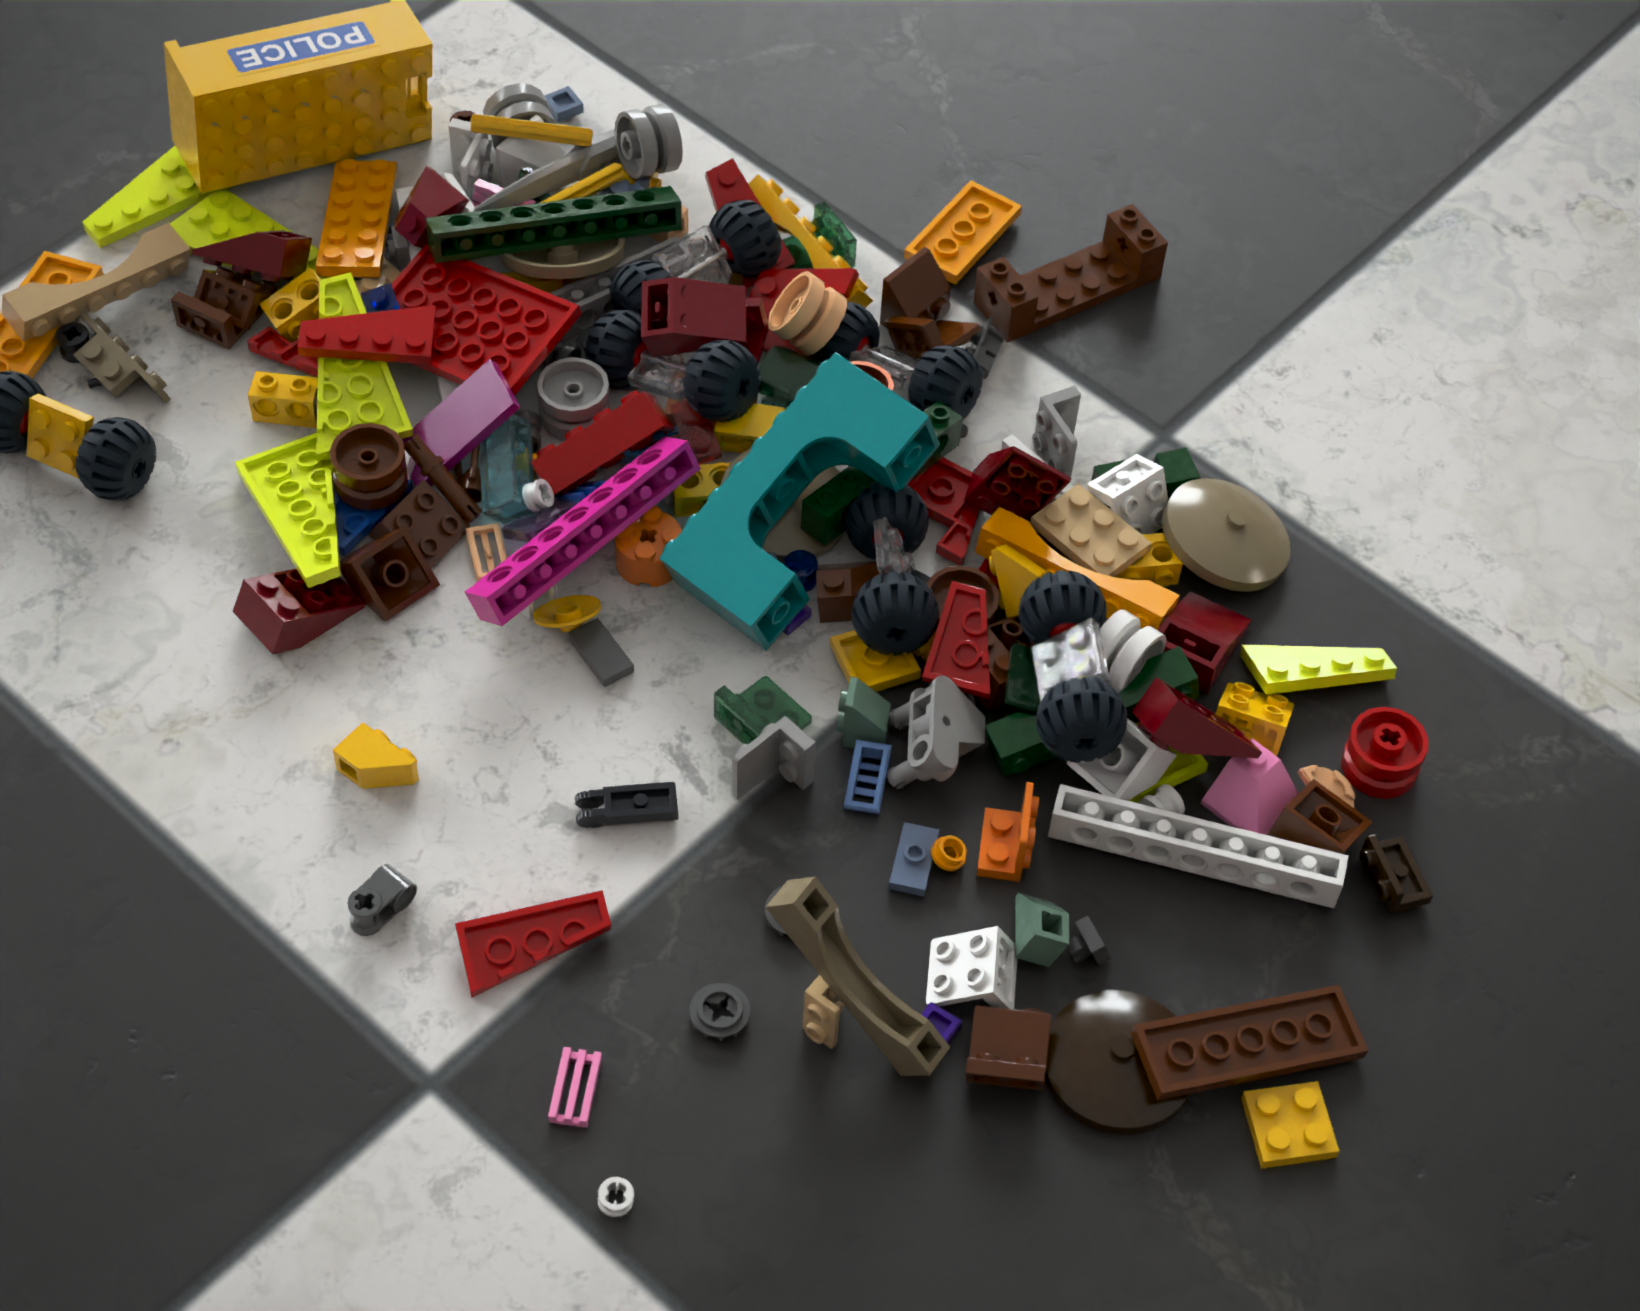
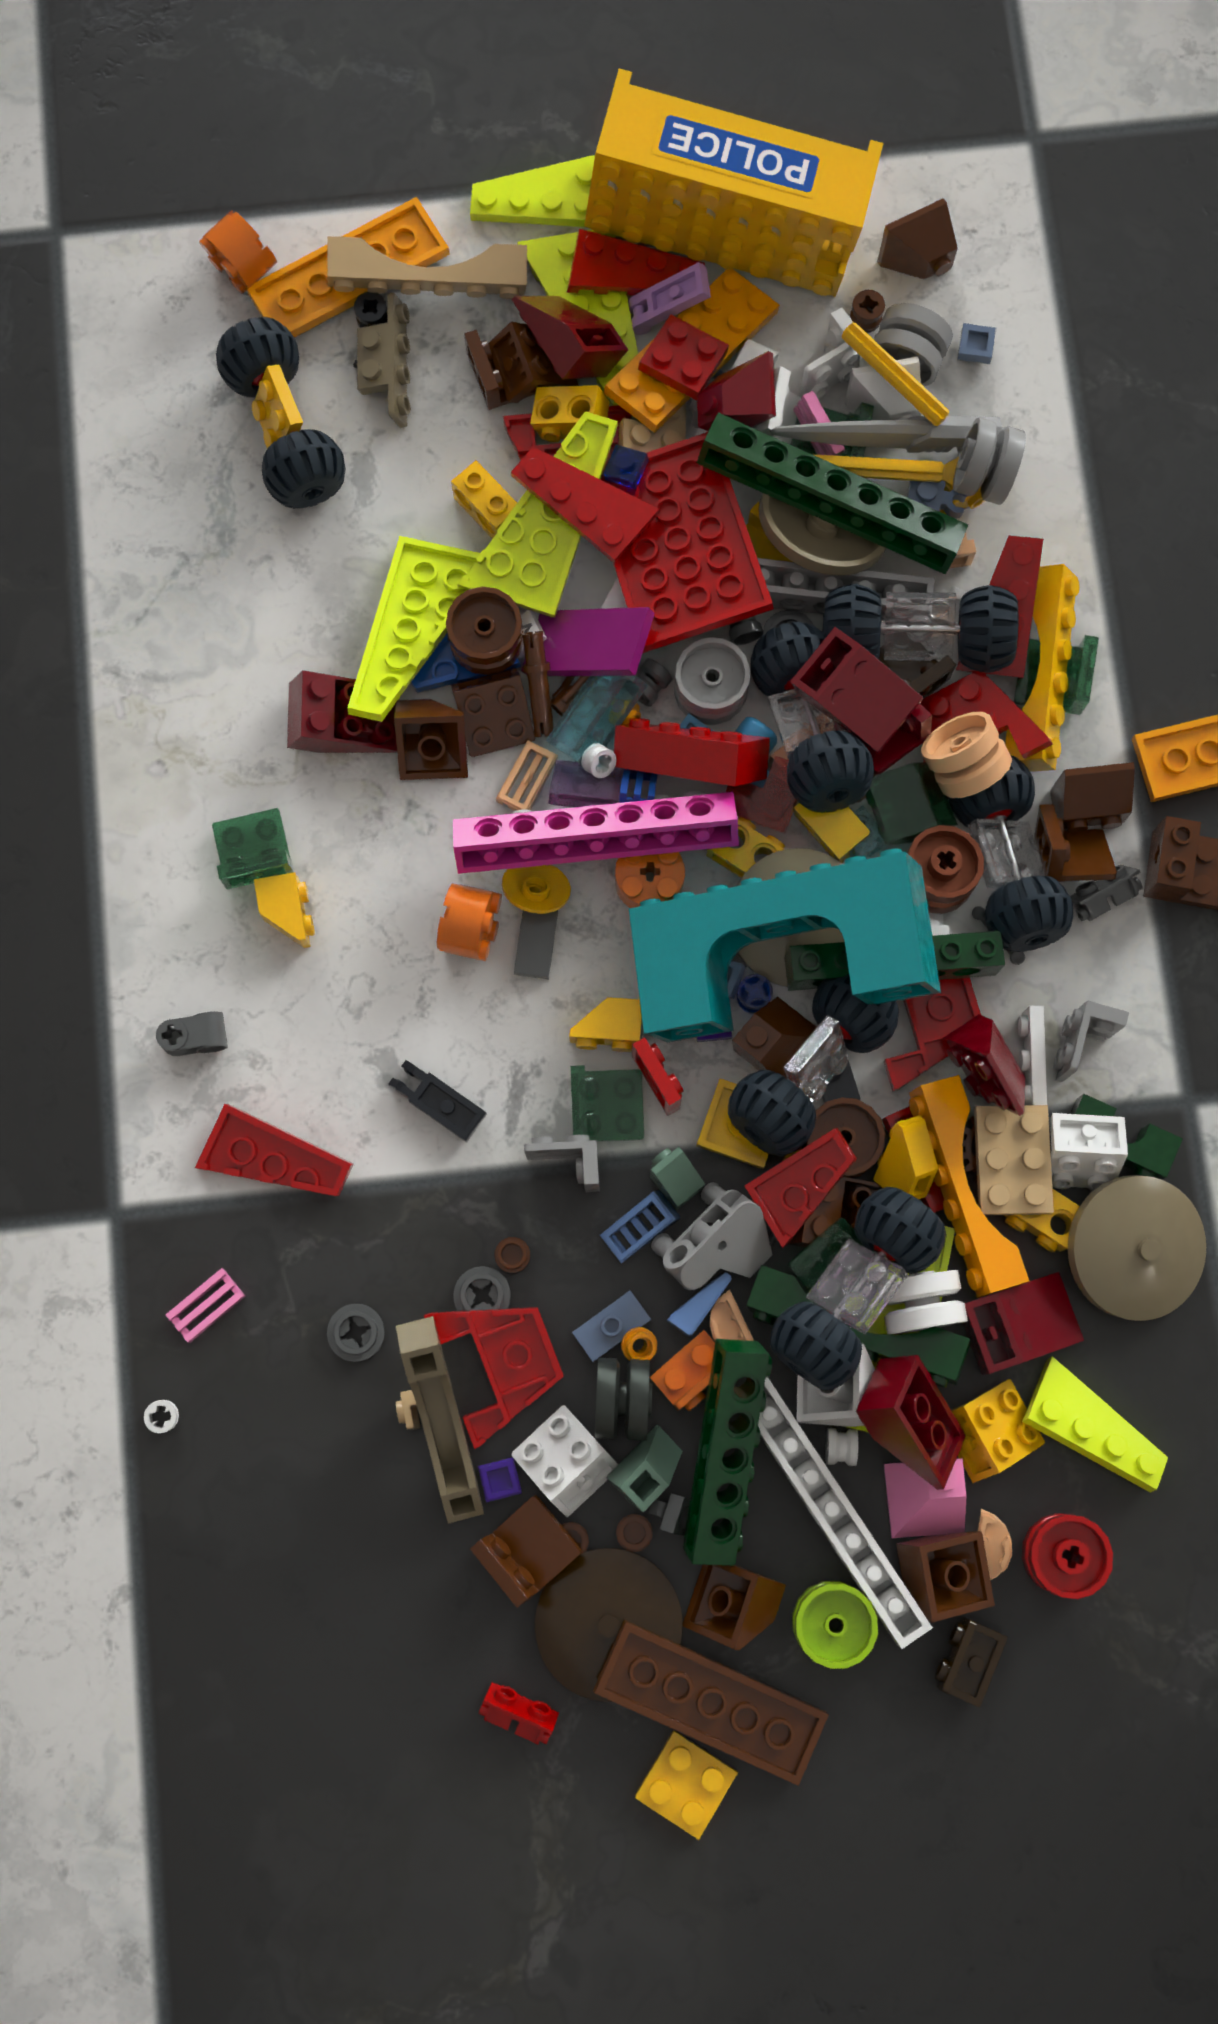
camera: 45 degrees right, 25 degrees up
(251, 200) = (619, 265): none -> red wing
(306, 740) = (251, 848): none -> clear green bracket
(311, 194) = (669, 297): none -> lavender plate
(359, 216) = (683, 357): none -> red plate
(467, 66) = (920, 242): none -> reddish brown slope
(538, 662) = (468, 922): none -> orange brick
(715, 660) = (611, 1023): none -> yellow slope
(785, 660) = (665, 1087): none -> red plate
(790, 865) = (512, 1255): none -> reddish brown plate
(874, 927) = (515, 1357): none -> red wing
(967, 800) = (693, 1312): none -> medium blue slope
(975, 885) = (623, 1399): none -> pearl dark grey wheel
(1001, 791) = (727, 1320): none -> light nougat plate
(1072, 983) = (634, 1532): none -> reddish brown tile
(1088, 851) = (730, 1362): none -> dark green brick
(1133, 1172) = (534, 1717): none -> red hinge
(1191, 964) = (732, 1604): none -> reddish brown slope
(1279, 918) = (834, 1647): none -> lime wheel

